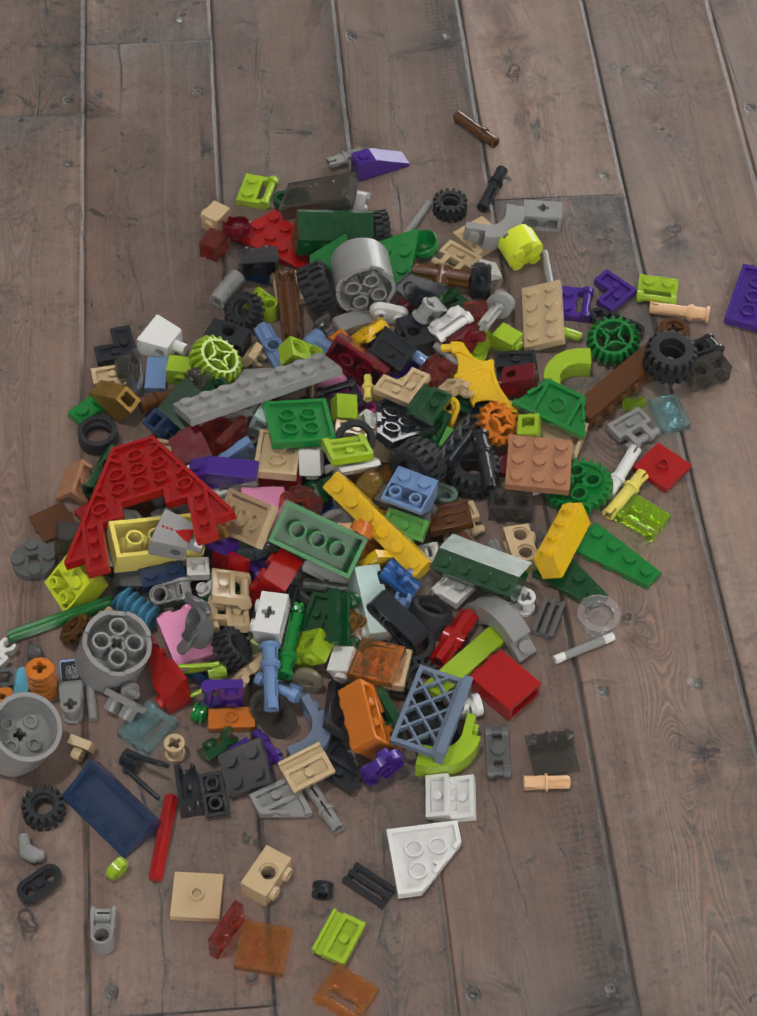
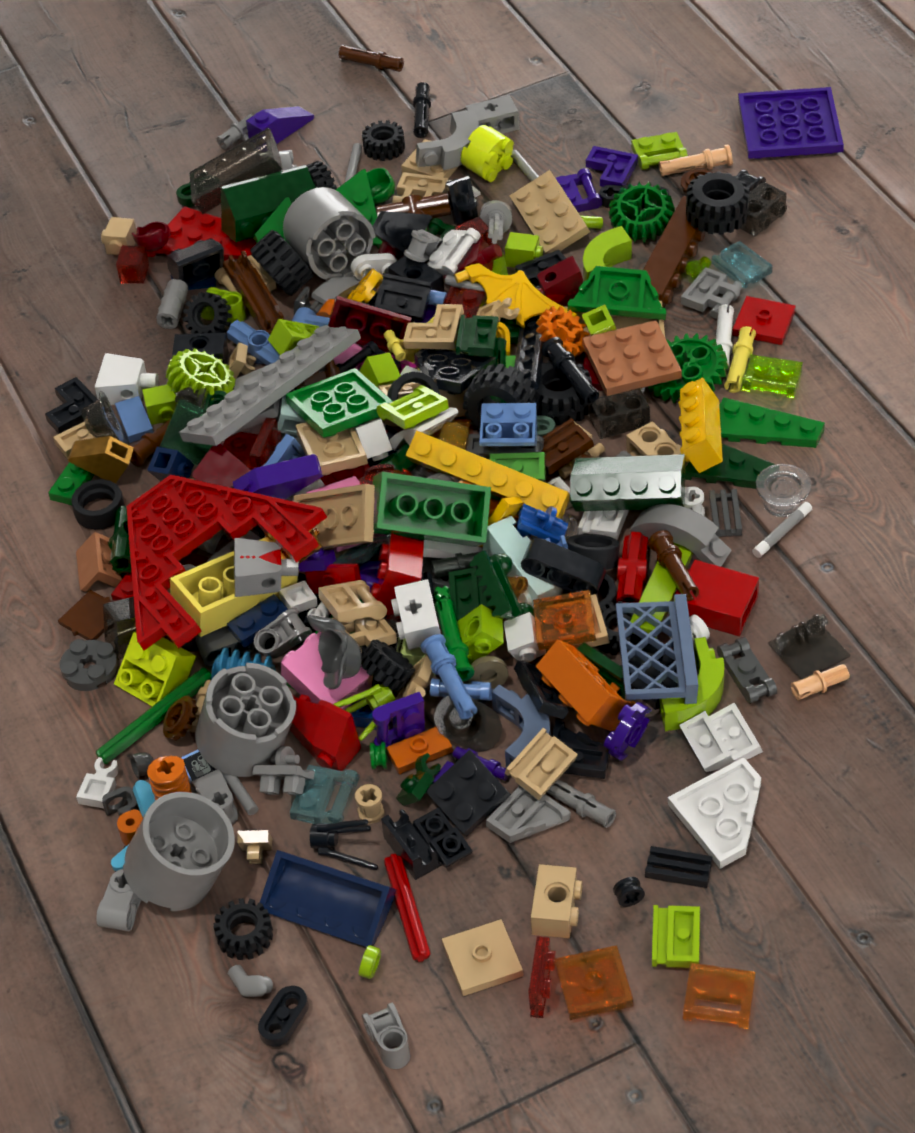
camera: 15 degrees left, 5 degrees down
(251, 189) = (145, 196): lime plate -> none
(363, 528) = (480, 476): orange plate -> none
(482, 641) = (670, 557): none -> reddish brown pin

